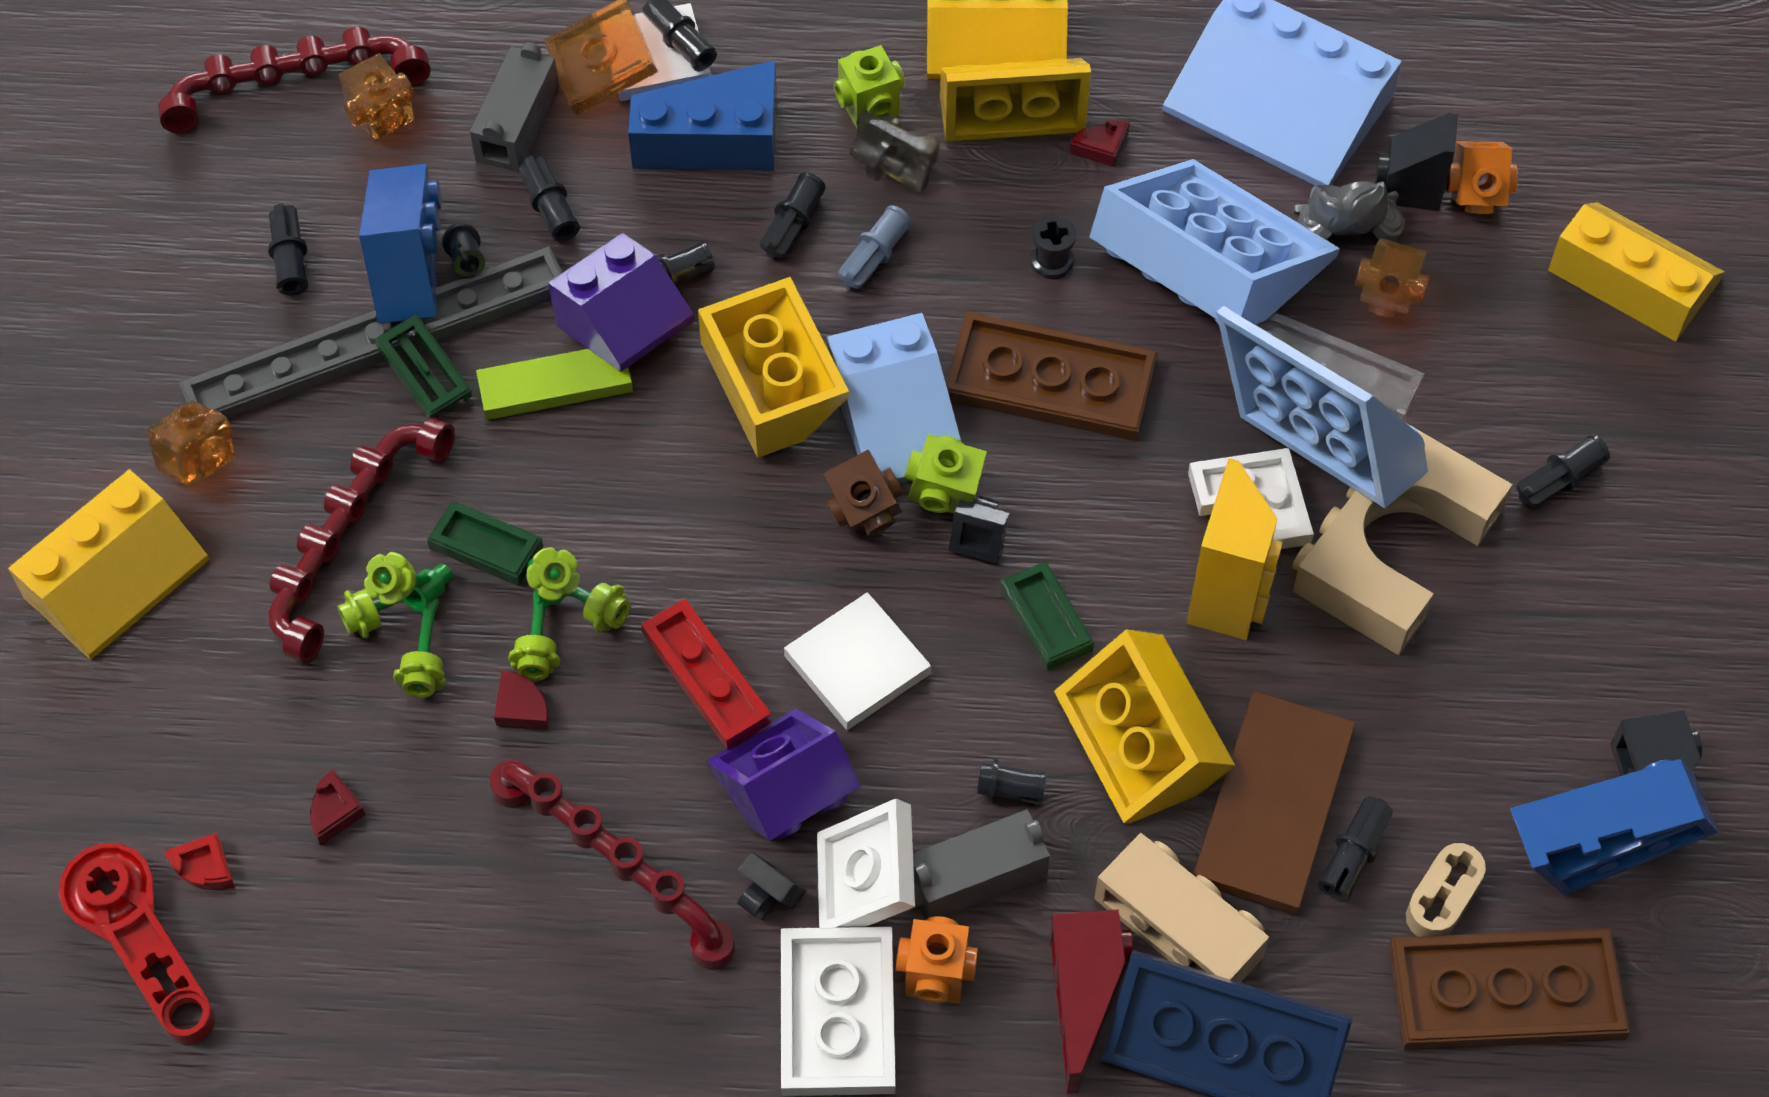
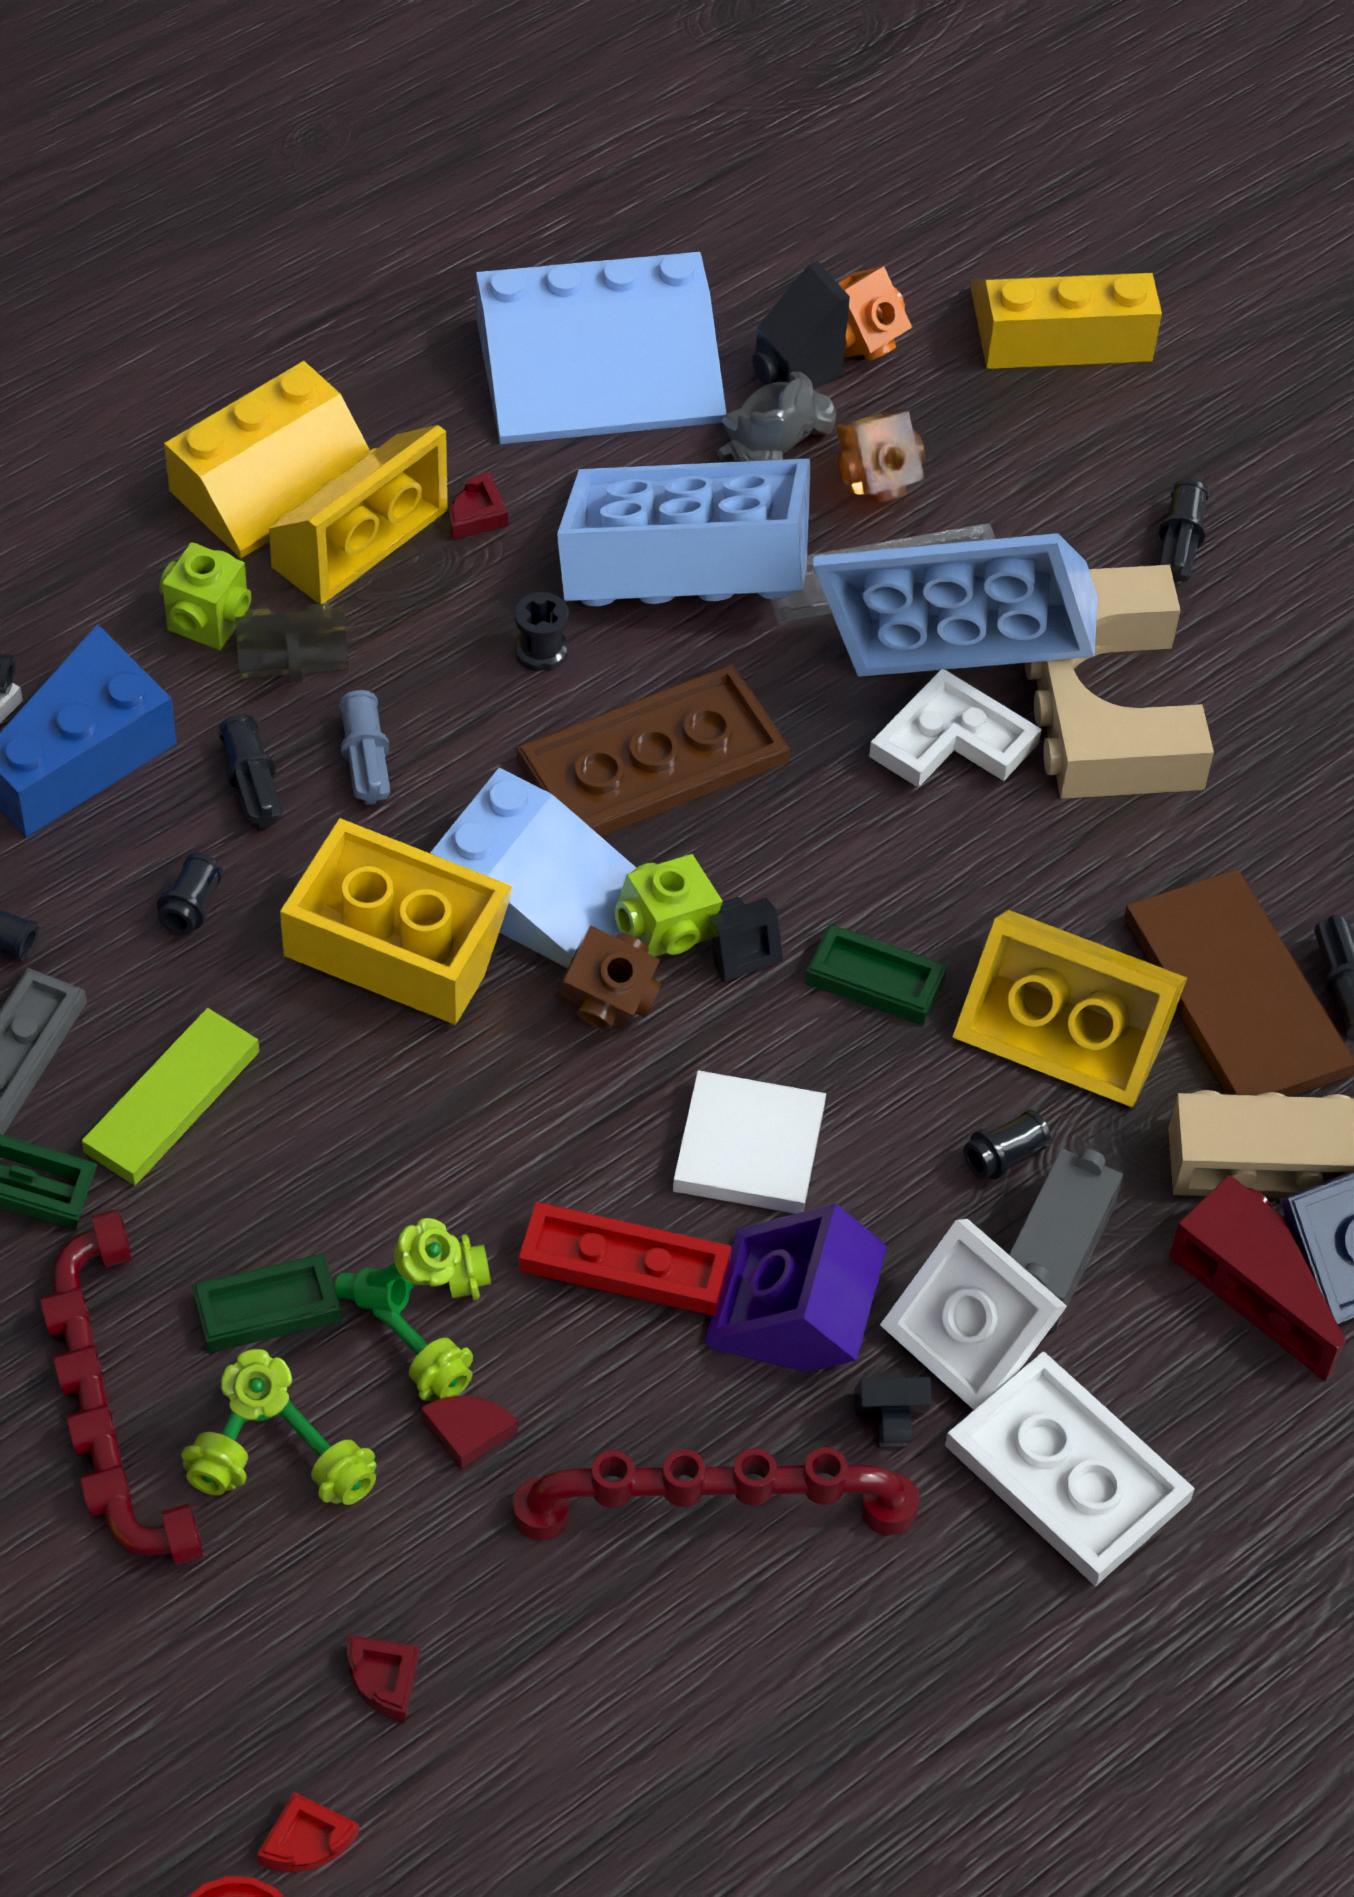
camera: 45 degrees left, 5 degrees down
(619, 302) = (175, 968): dark purple slope -> none
(936, 960) = (1115, 1347): orange brick -> none
(1235, 558) = (1016, 784): yellow slope -> none

